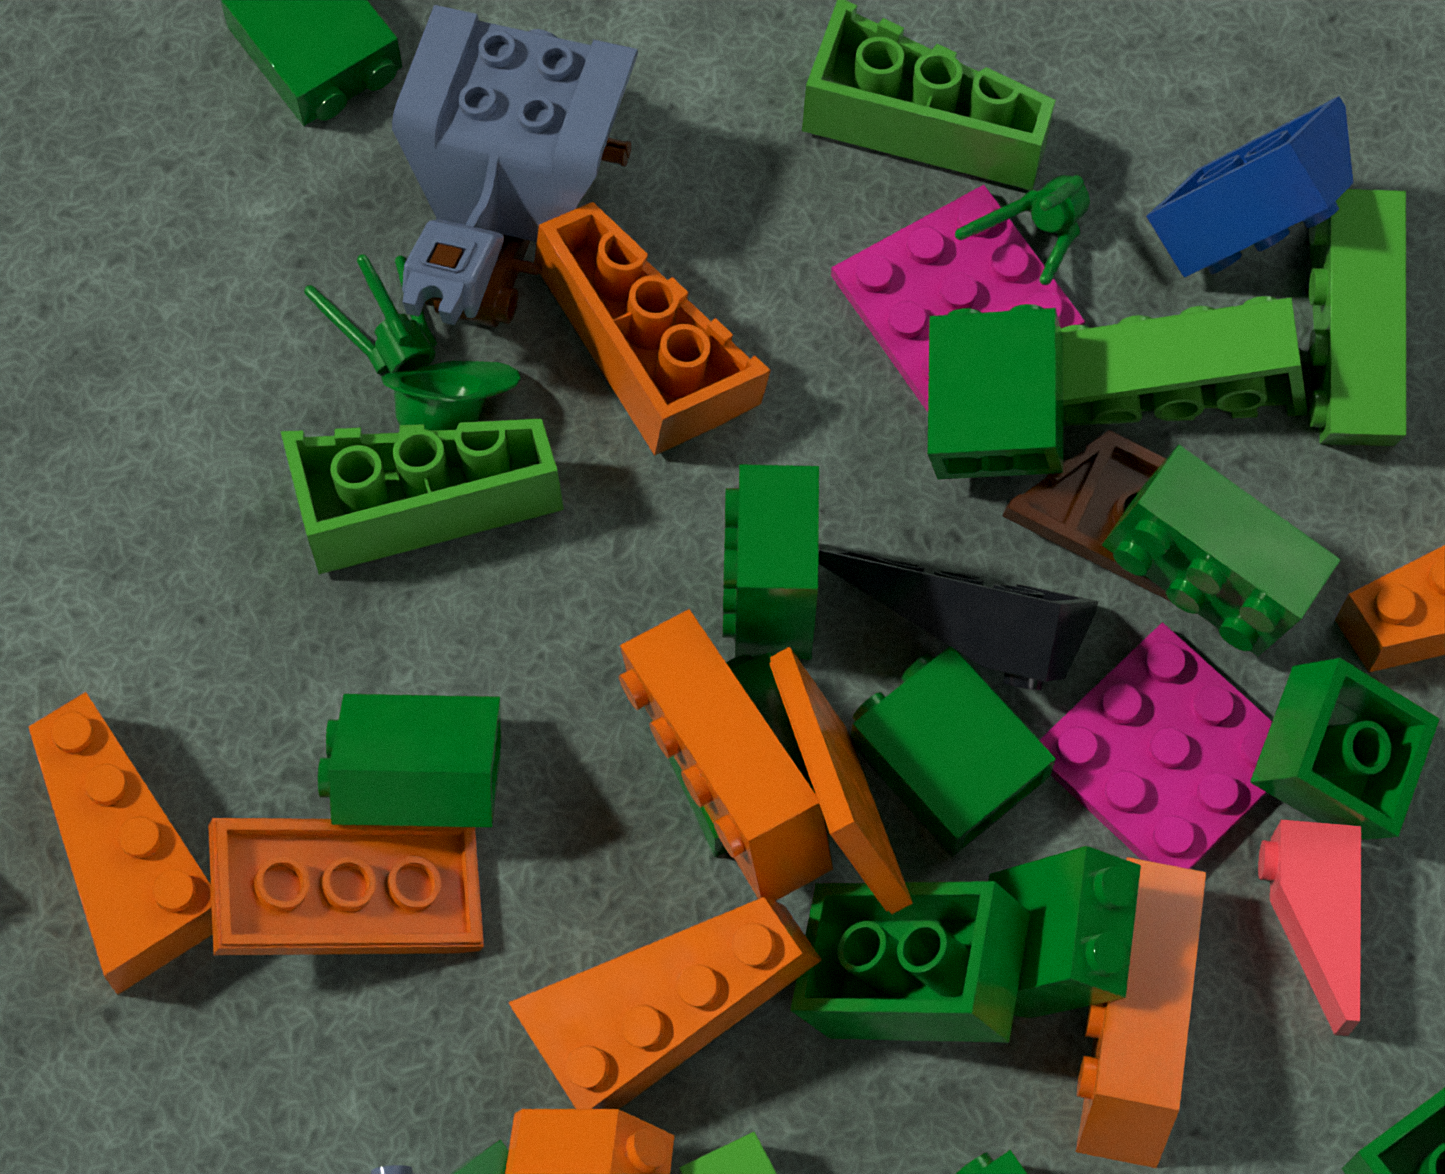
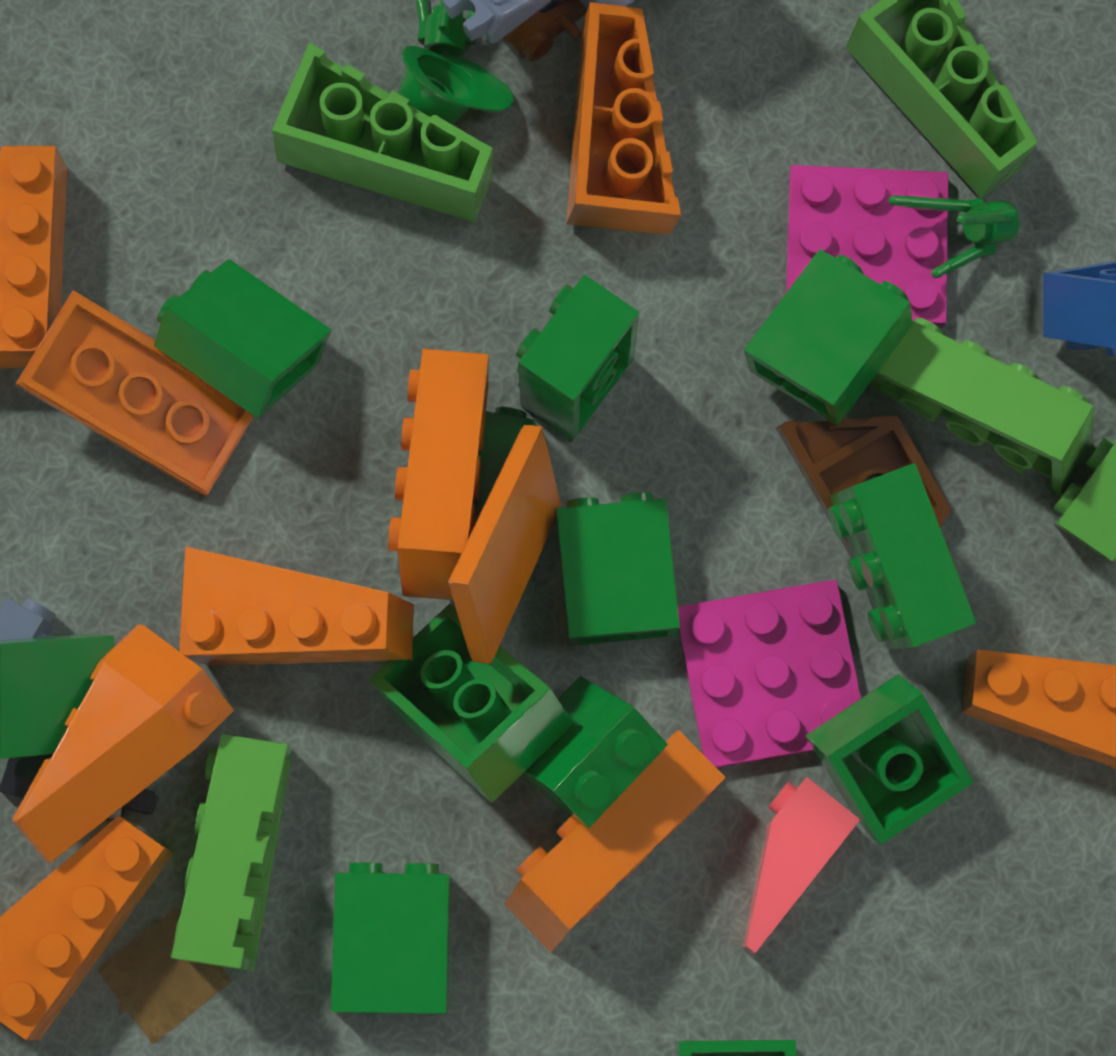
camera: 35 degrees right, 10 degrees up
(1002, 628) = (710, 508): black wedge -> none

